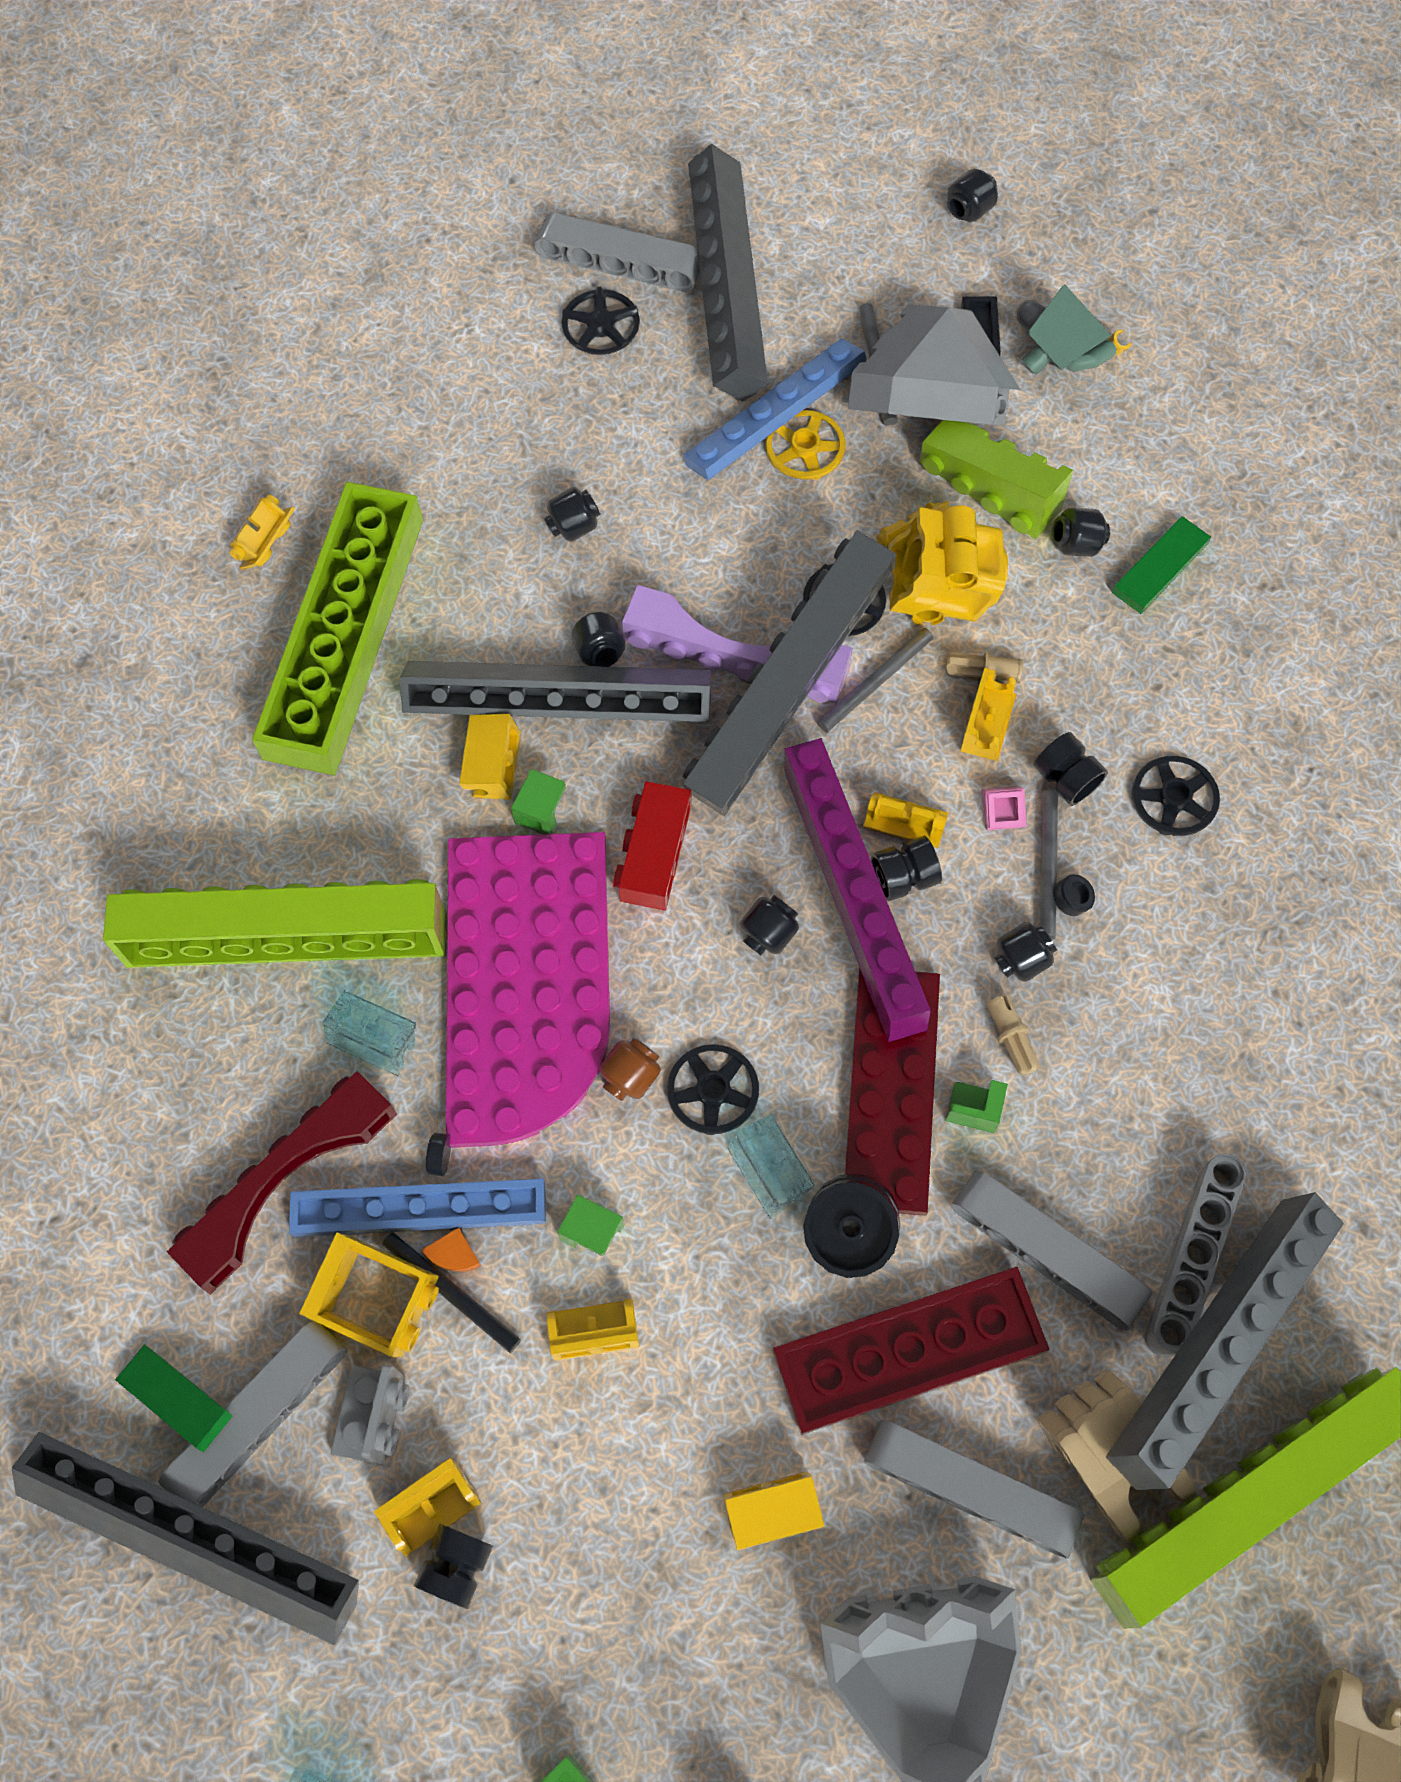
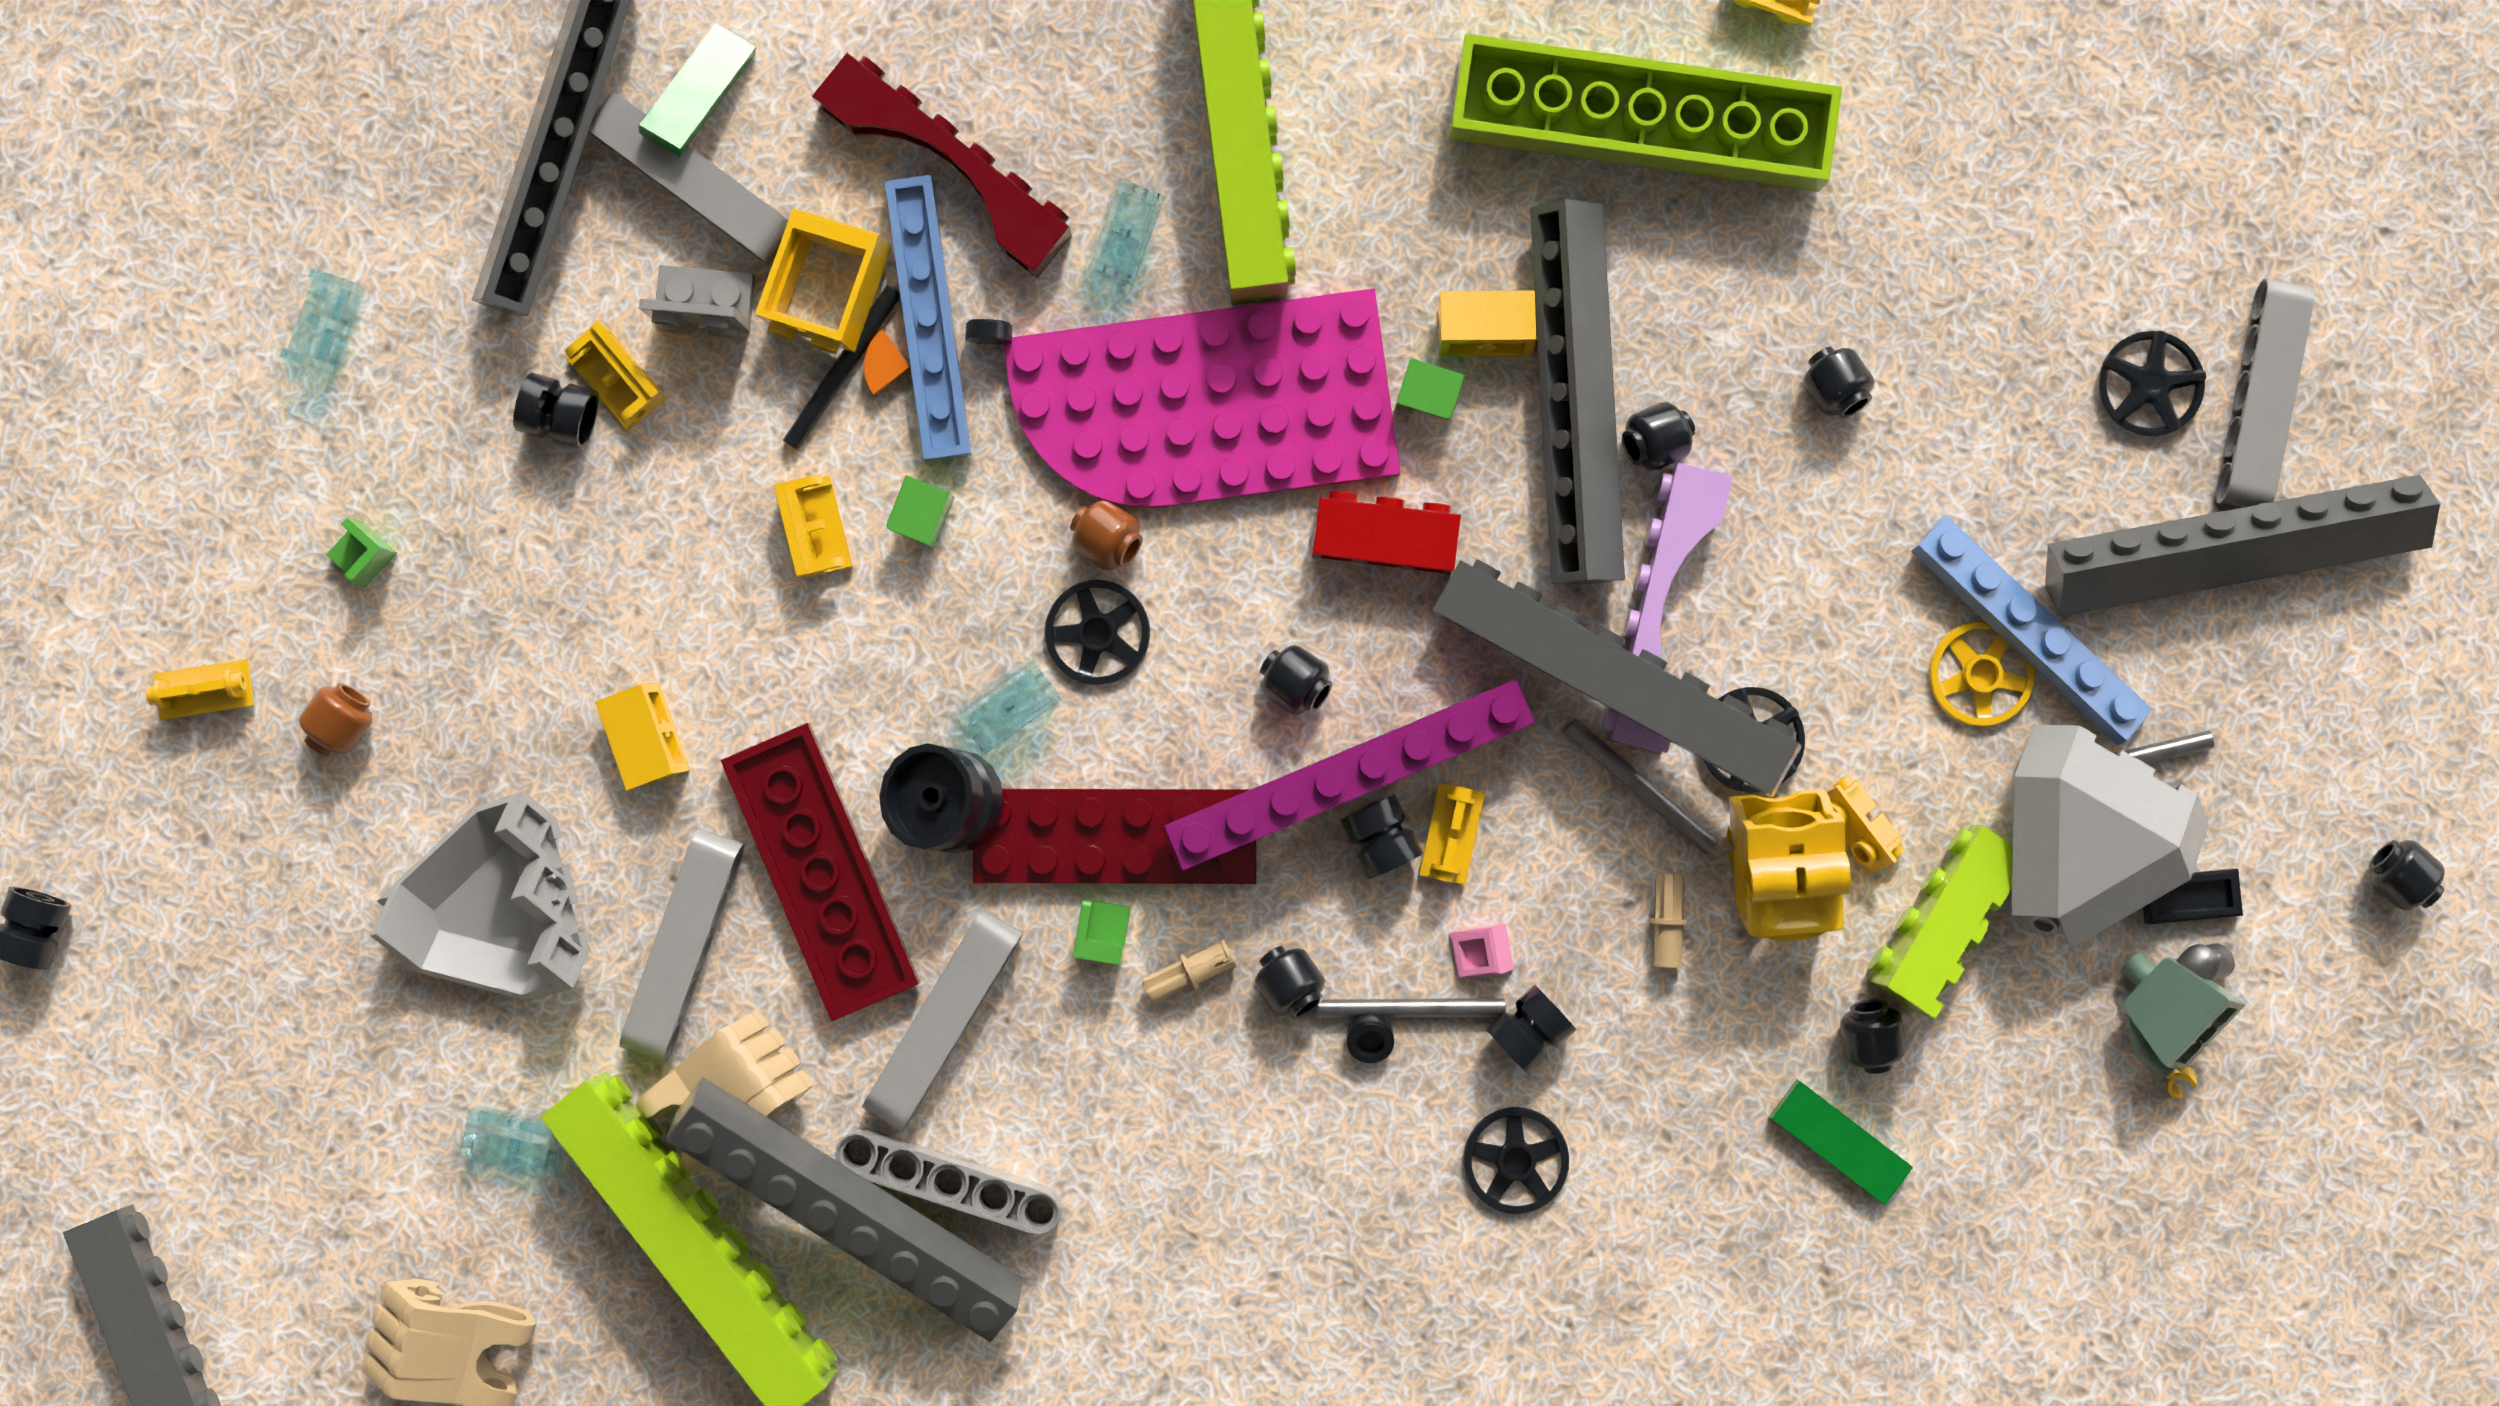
camera: 85 degrees right, 20 degrees up
(989, 717) = (1597, 929): yellow hinge -> none
(1156, 1675) = (511, 1140): none -> clear light blue hinge

